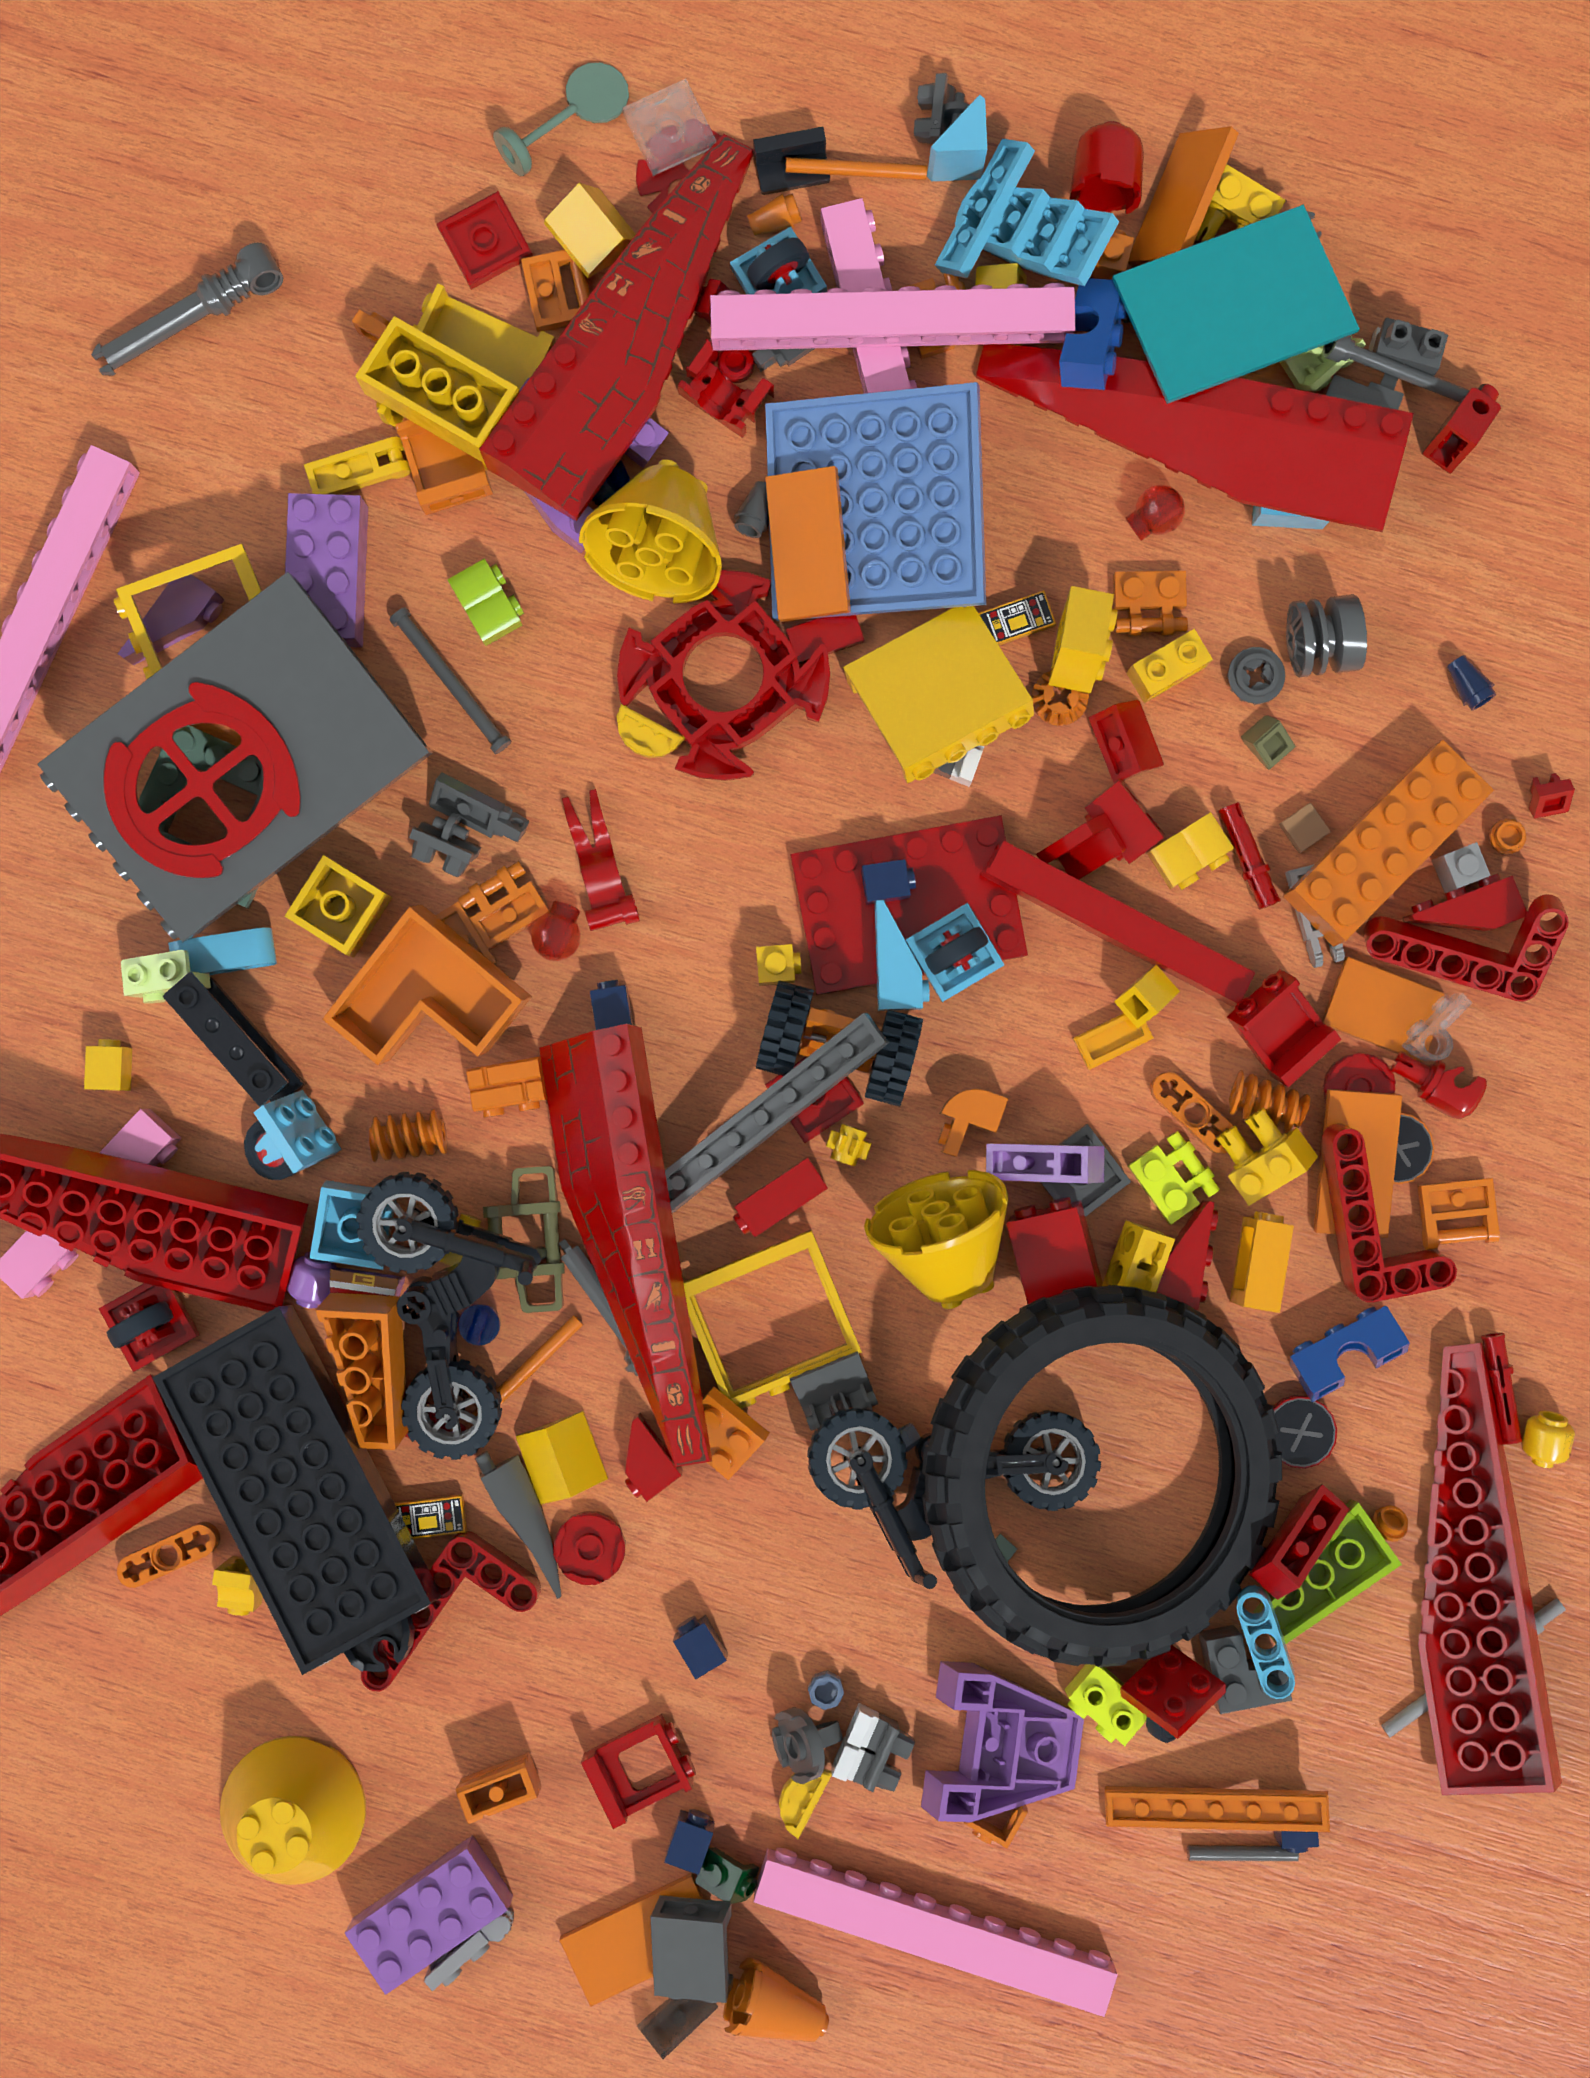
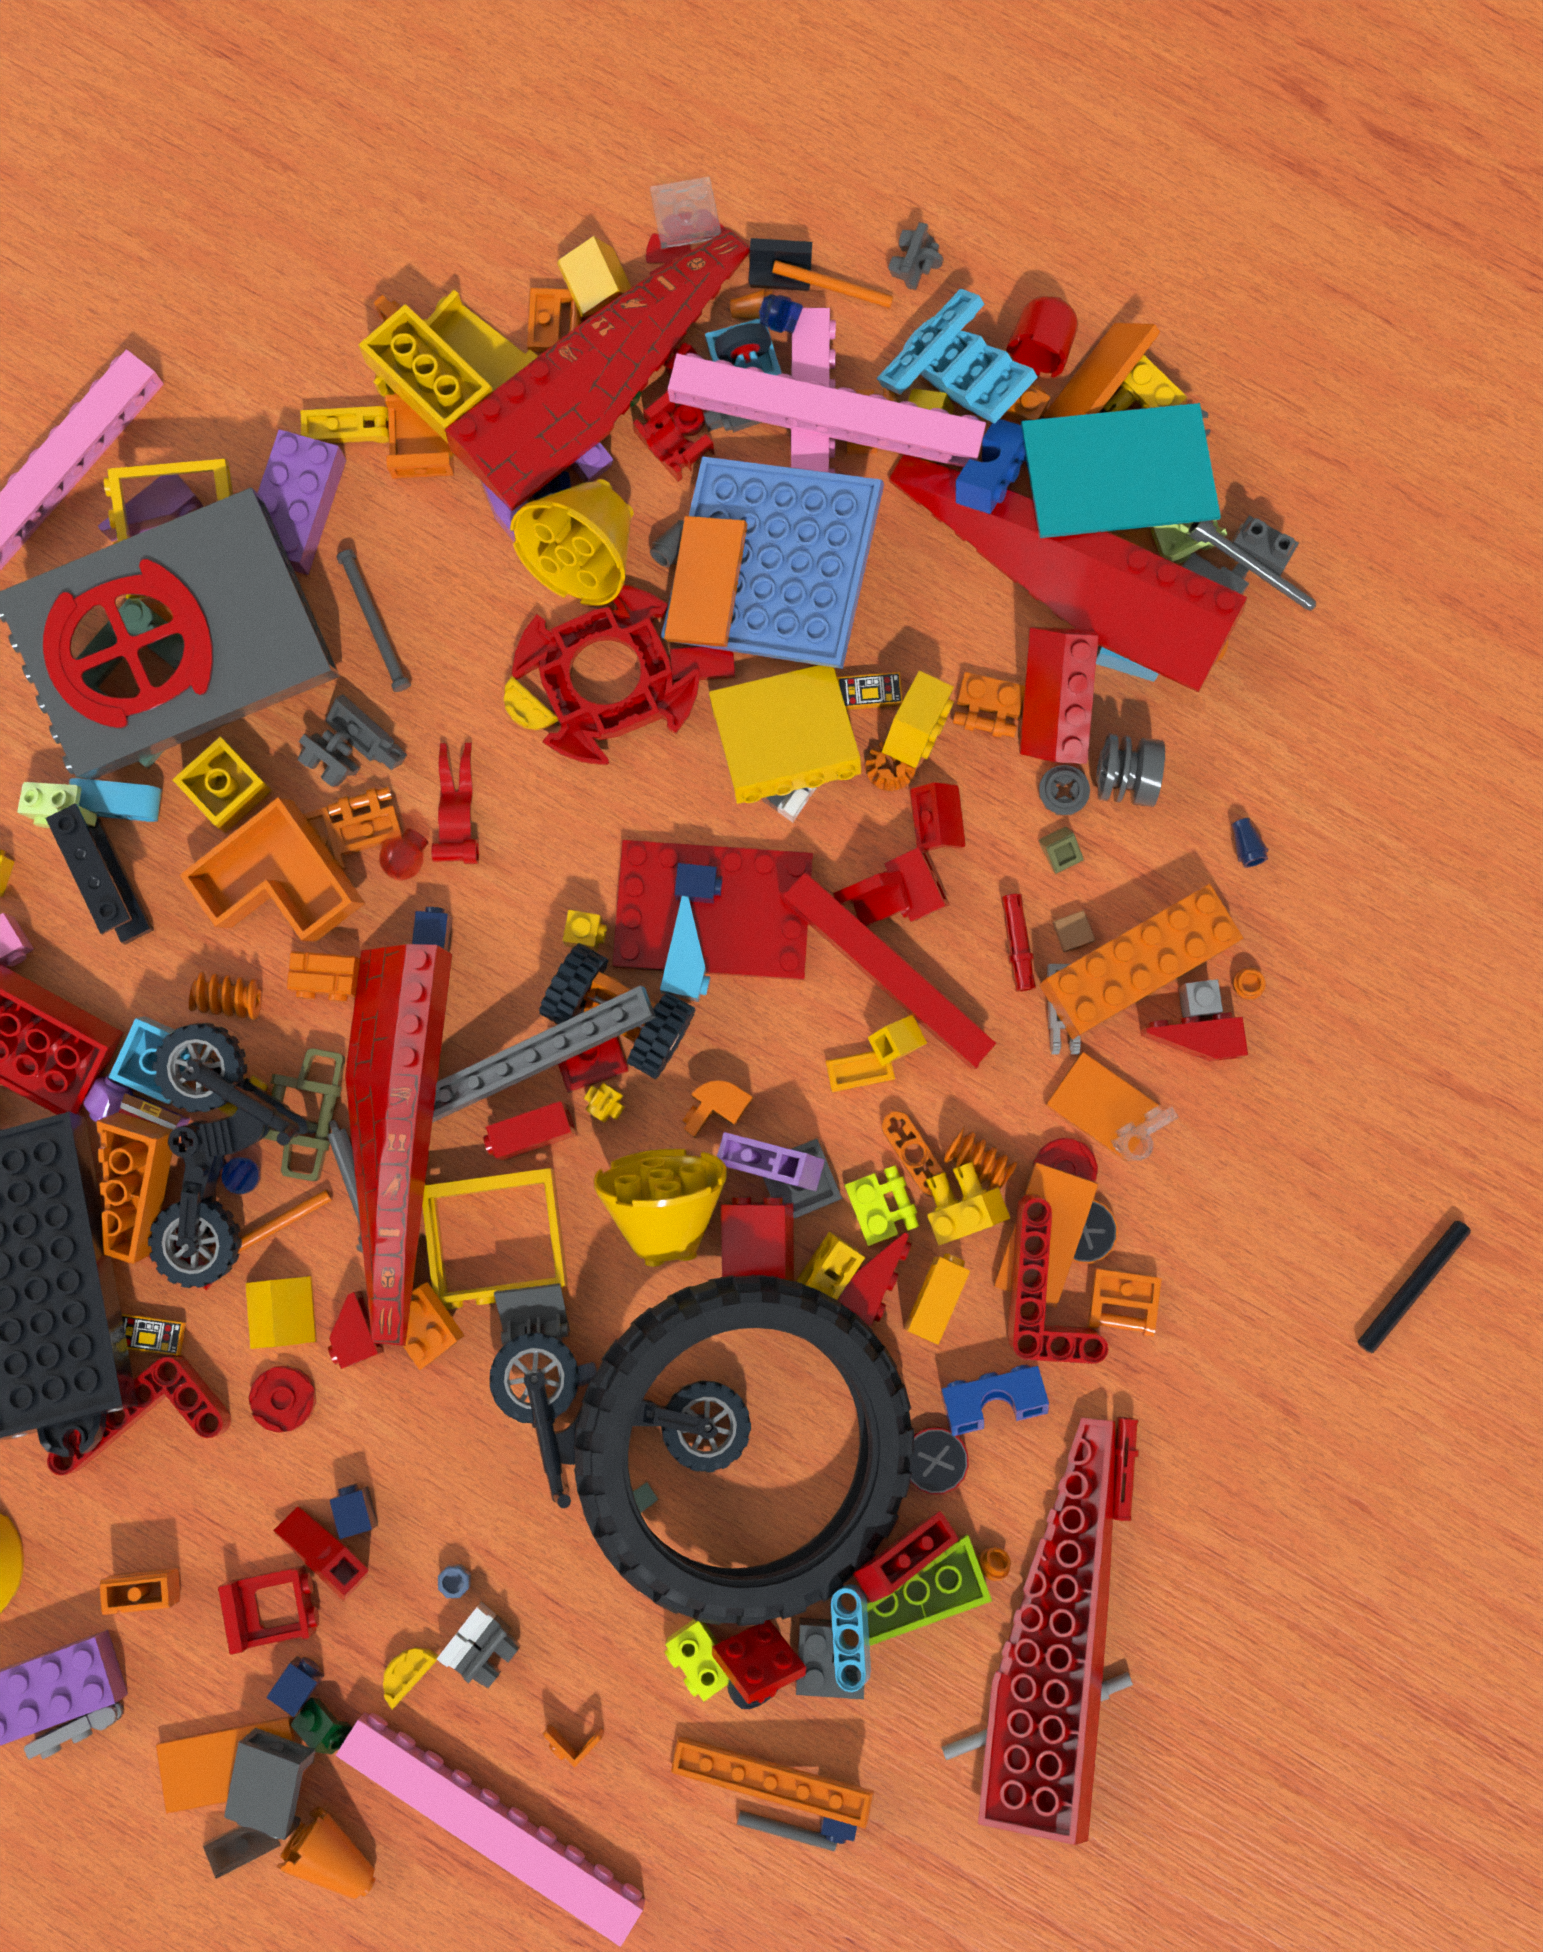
camera: 15 degrees right, 5 degrees down
(214, 295) = (303, 243): dark grey piece -> none
(288, 1137) = (123, 970): medium azure plate -> none
(484, 240) = (505, 266): red tile -> none
(486, 602) = (421, 561): lime brick -> none
(519, 1505) = (229, 1339): dark grey piece -> none
(593, 93) = (628, 169): sand green piece -> none
(679, 1698) = (322, 1553): none -> red slope
(802, 1743) = (417, 1622): dark grey tile -> none
(809, 218) = (779, 313): none -> clear blue piece
(954, 952) = (739, 959): medium azure plate -> none
(962, 147) = (922, 286): medium azure slope -> none
(1012, 1746) = (607, 1679): medium lavender wedge -> none
(1157, 511) = (1011, 629): clear red piece -> none
(1169, 666) = (990, 762): yellow brick -> none
(1191, 851) = (968, 926): yellow brick -> none
(1228, 571) = (1058, 694): none -> red slope
(1282, 1028) = (1008, 1097): red panel -> none
(1438, 1086) = (1132, 1185): red piece -> none
(1468, 421) = (1299, 620): red torso -> none
(1474, 956) = (1192, 1078): red beam -> none
(1548, 1439) = (1154, 1524): yellow head -> none
(1550, 797) = (1294, 959): red tile -> none

